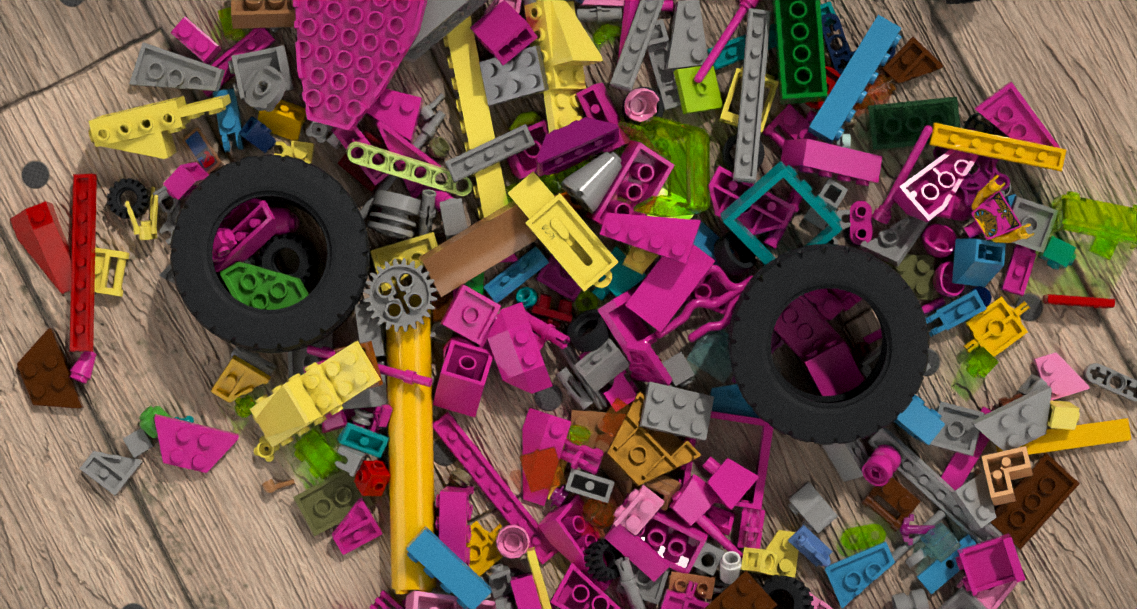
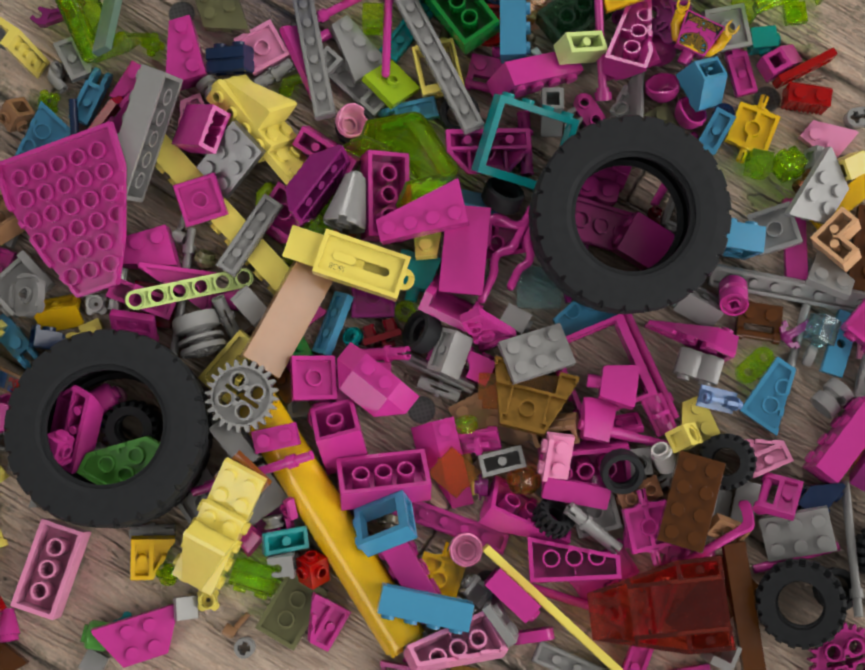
camera: 25 degrees left, 5 degrees down
(149, 340) = (50, 568): none -> bright pink brick
(243, 444) = (185, 608): none -> light grey tile
(273, 501) = (250, 641): none -> light grey bush
(342, 170) = (135, 322): none -> dark pink plate
(408, 348) = (276, 438): none -> dark pink plate
(456, 493) = (390, 537): none -> dark azure window
(465, 95) = (200, 199): none -> dark pink plate
(478, 438) = (377, 475): none -> dark pink brick
(682, 572) = (622, 487): none -> black tyre
(714, 127) = (425, 106): none -> dark azure hinge
(719, 18) = (372, 18): none -> clear neon green panel
(771, 486) = (650, 364): none -> dark pink bar
(836, 491) = (706, 339): none -> dark pink wedge
(885, 163) = (580, 47): none -> yellowish green brick
(1006, 379) = (789, 164): none -> clear neon green brick
(1060, 281) = (778, 62): none -> dark pink slope
(1062, 329) = (806, 98): none -> red brick

